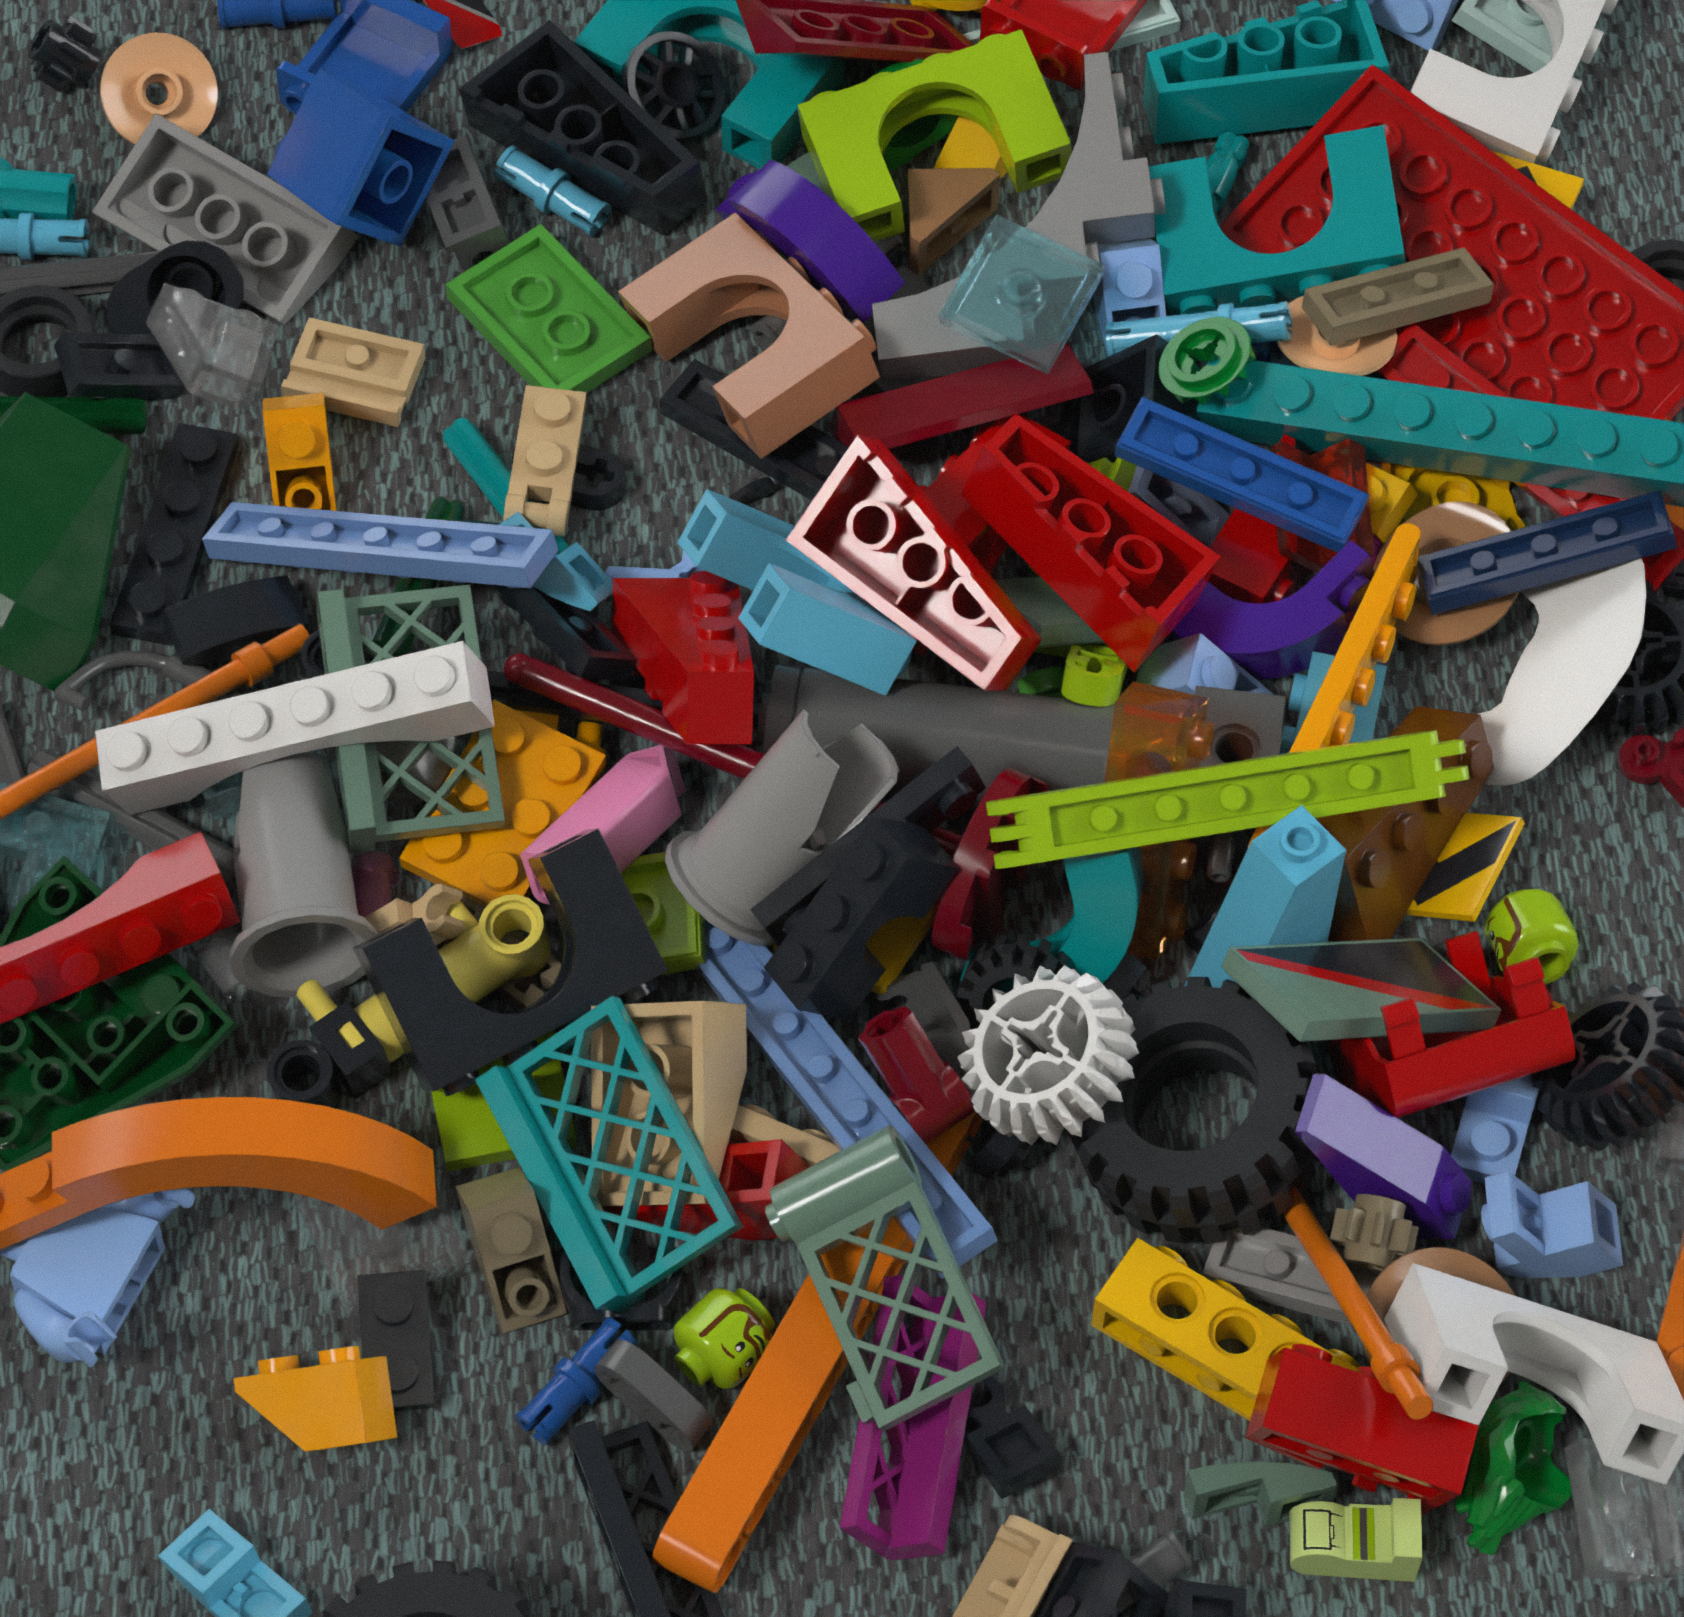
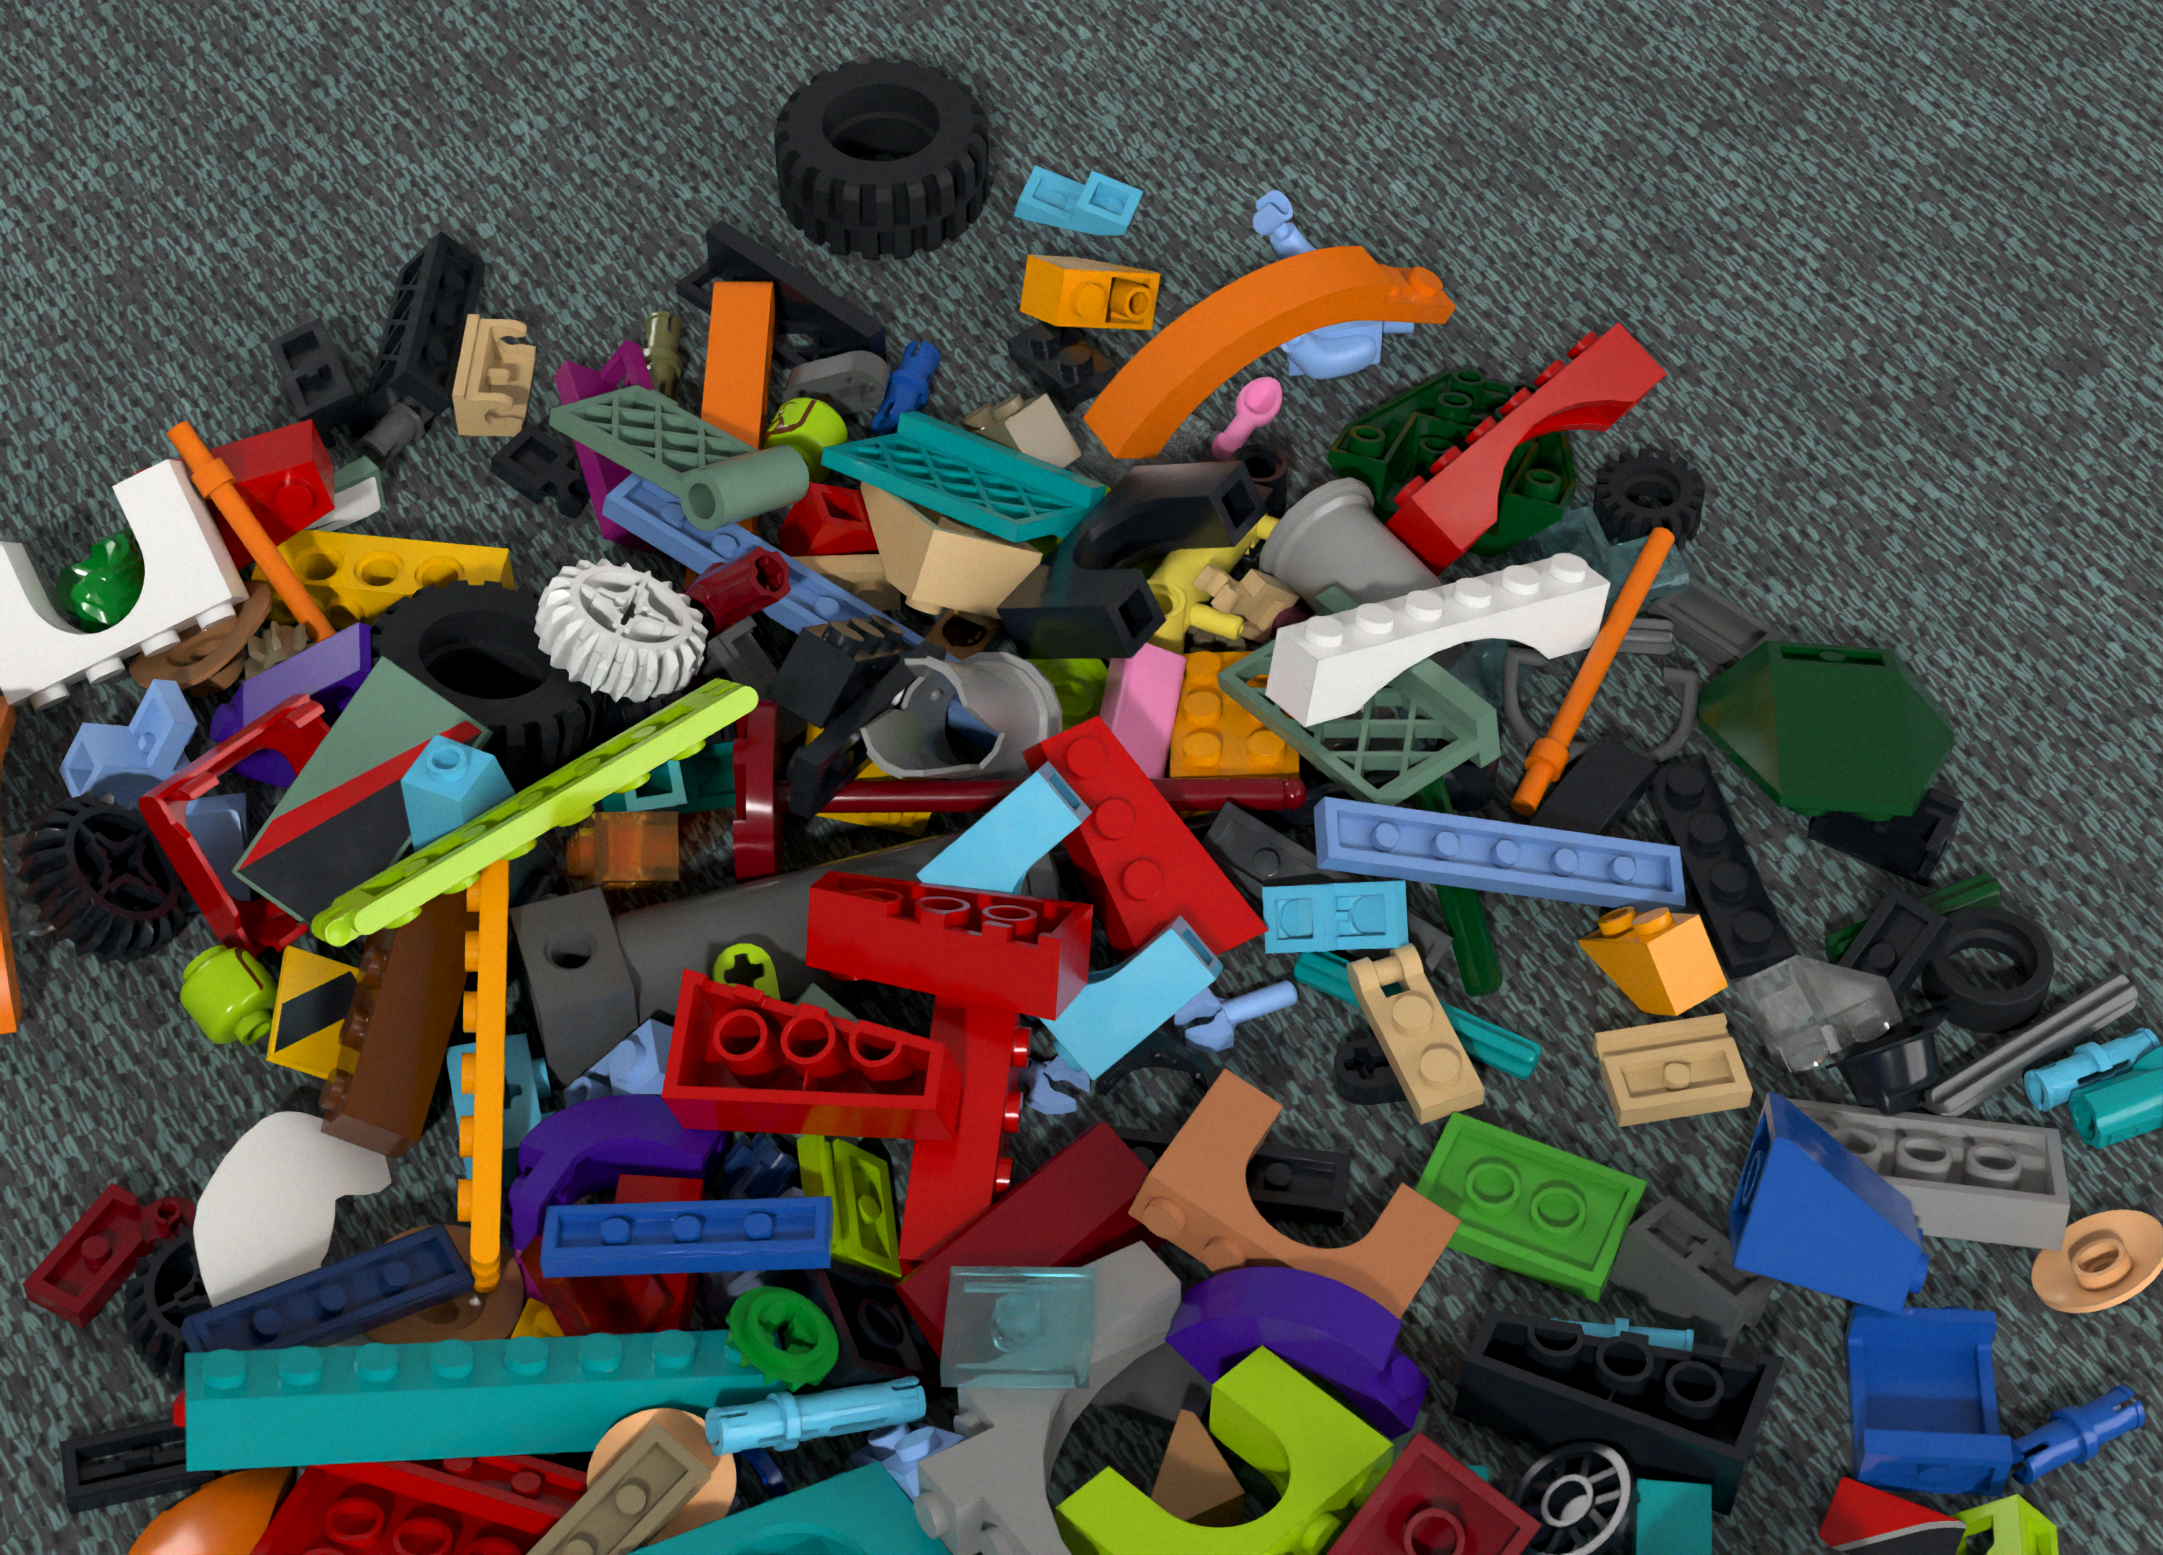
camera: 155 degrees right, 10 degrees down
(229, 1208) = (1254, 408): none -> bright pink piece
(815, 1545) = (661, 351): none -> olive pin

